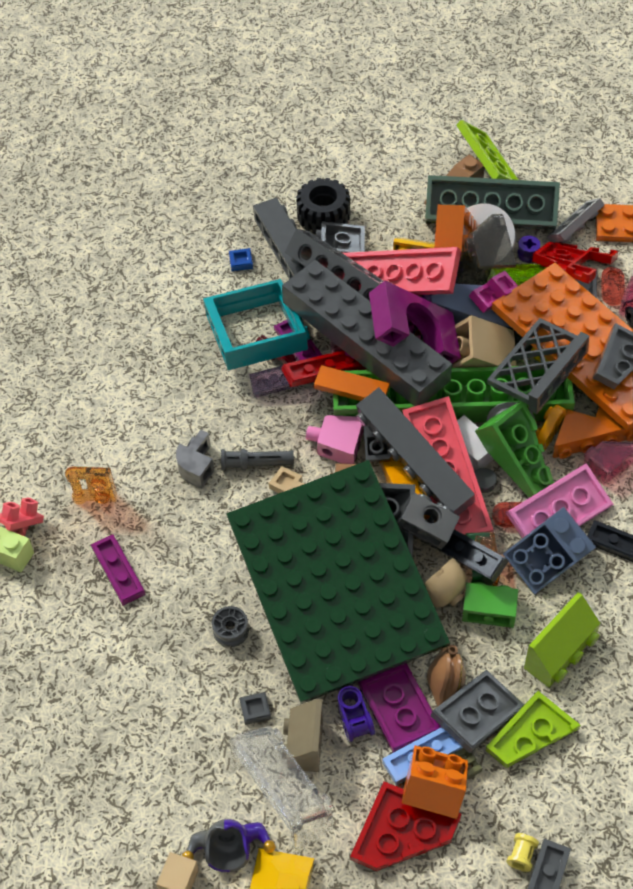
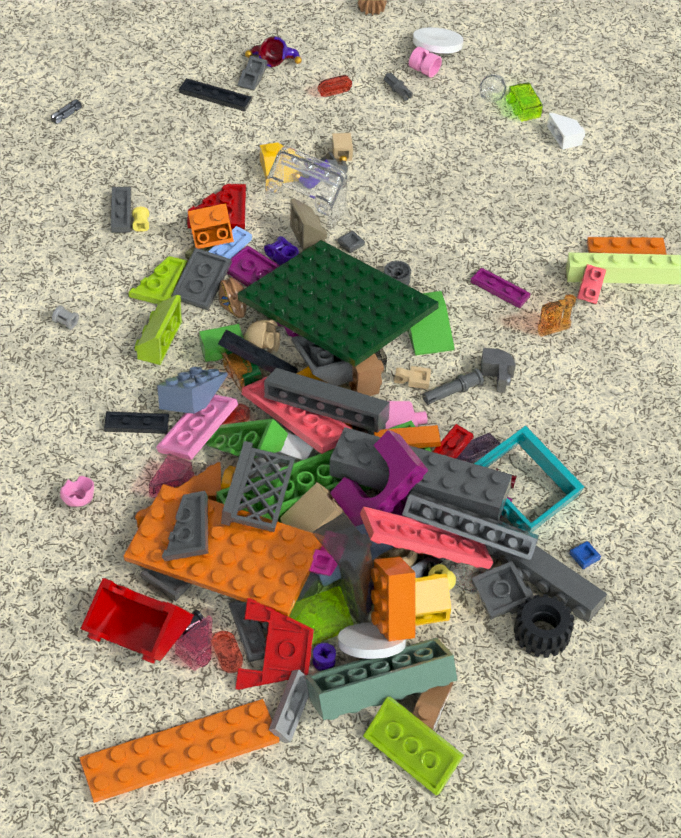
camera: 150 degrees right, 5 degrees down
(222, 554) = (434, 331): none -> bright green slope
(413, 520) = (290, 348): dark grey brick -> none

